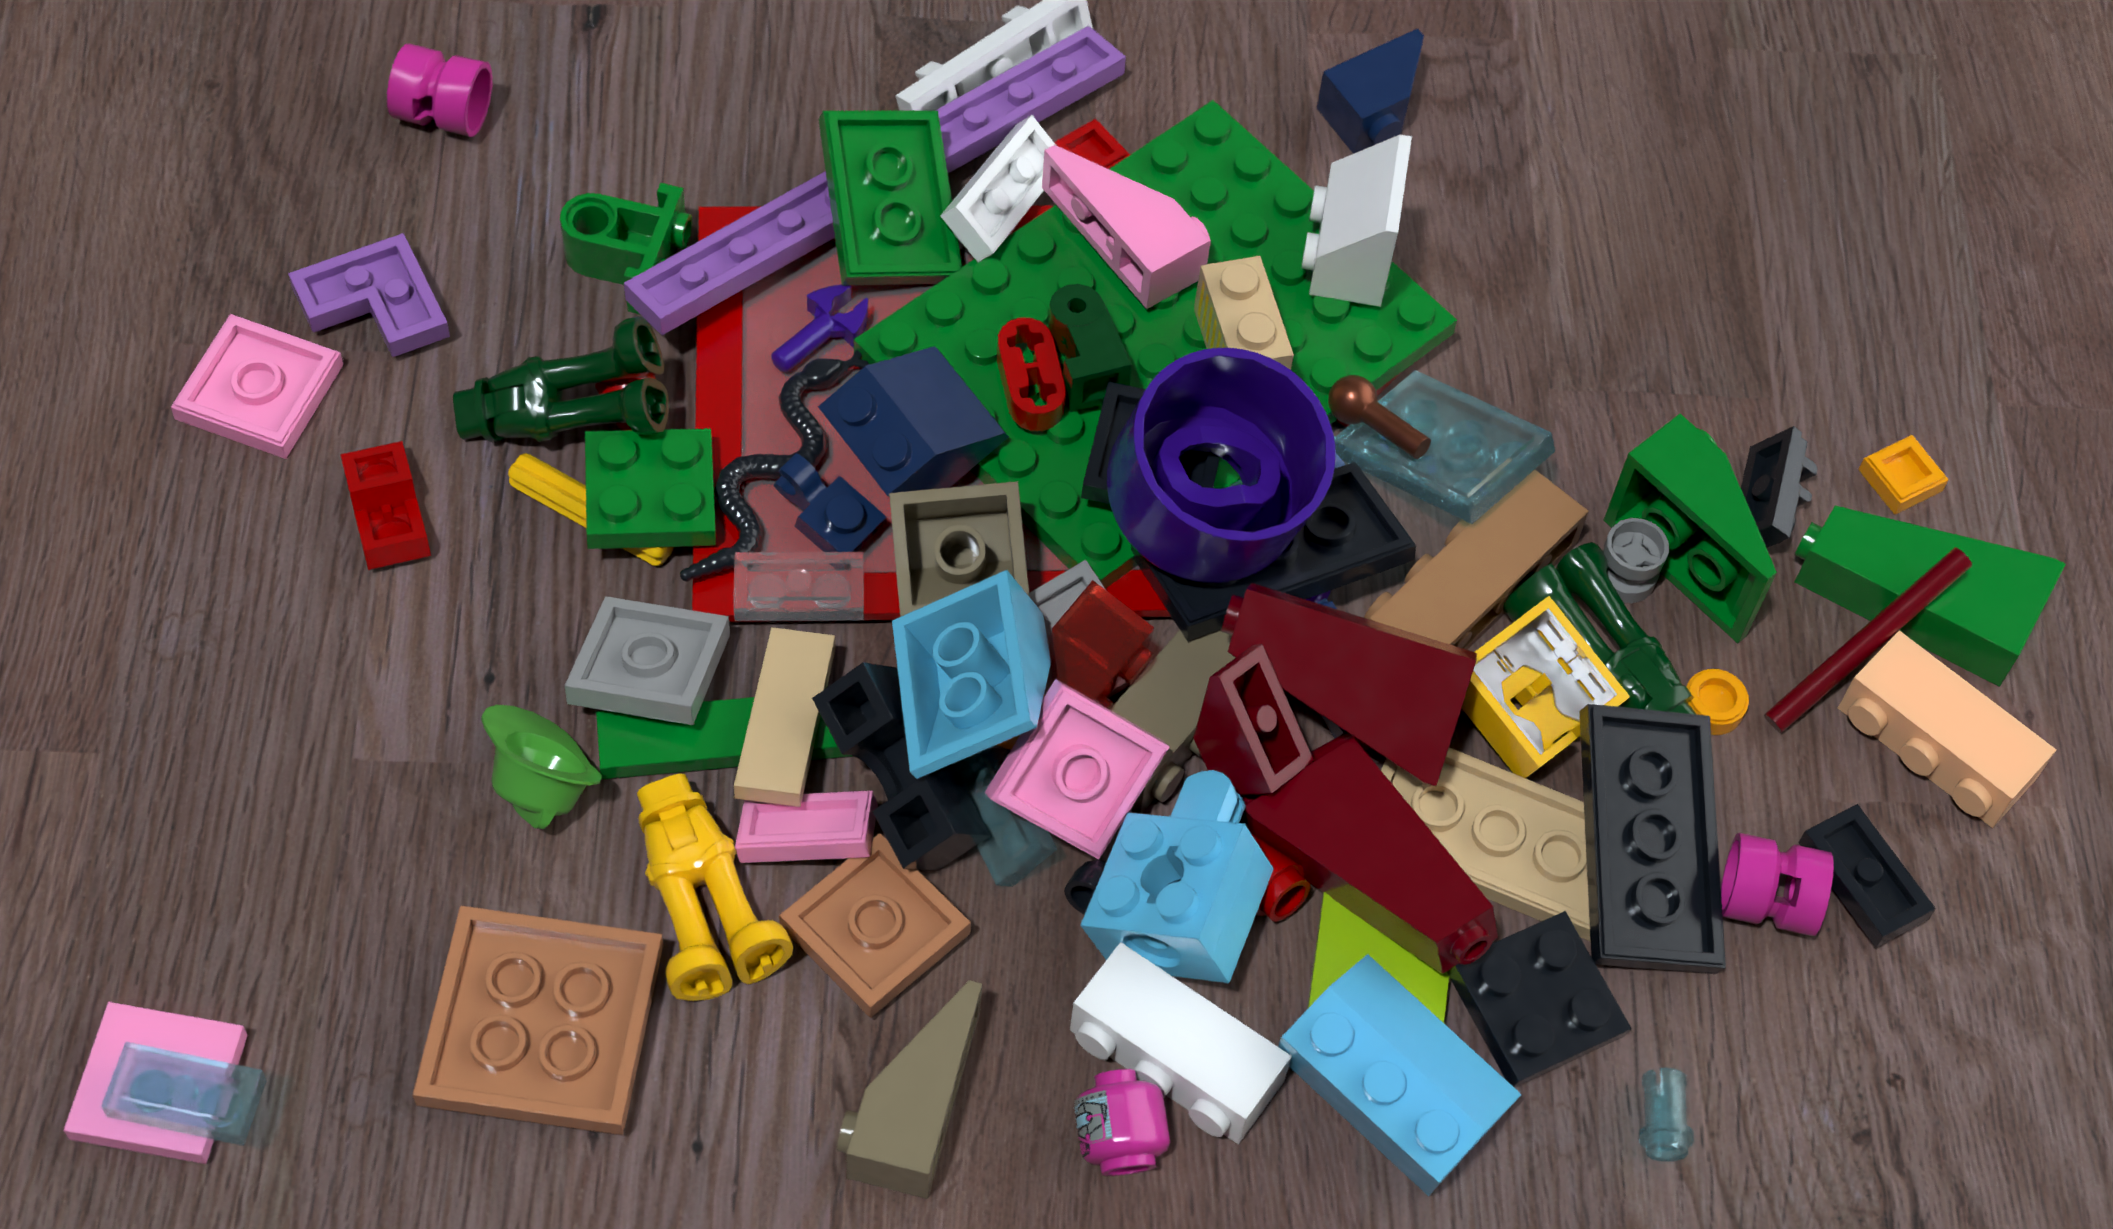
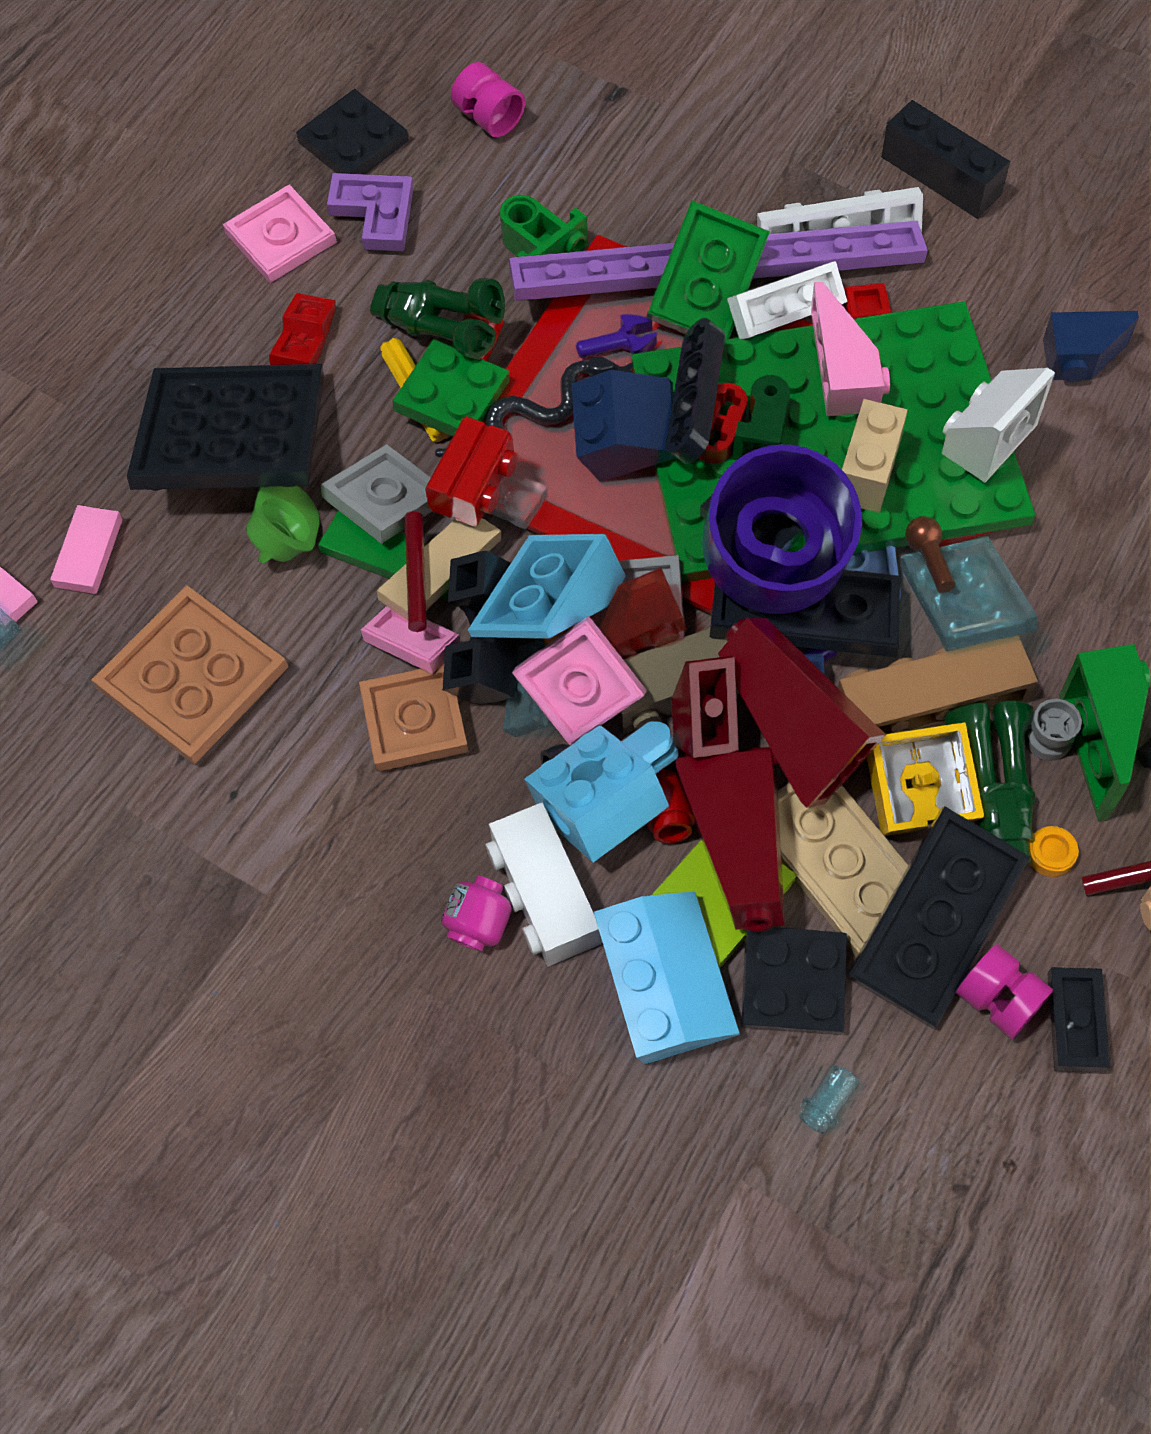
camera: 40 degrees right, 5 degrees up
(272, 213) = (352, 135): none -> black plate
(274, 930) = (86, 549): none -> bright pink tile
(381, 671) = (227, 427): none -> black plate
(690, 852) = (330, 619): yellow piece -> none
(765, 575) = (471, 471): none -> red brick
(770, 736) = (415, 571): none -> dark red bar
(832, 516) = (547, 457): dark blue plate -> none
(910, 1103) = (364, 833): dark tan slope -> none
(955, 540) = (604, 502): dark tan slope -> none
(973, 354) = (695, 391): none -> black beam

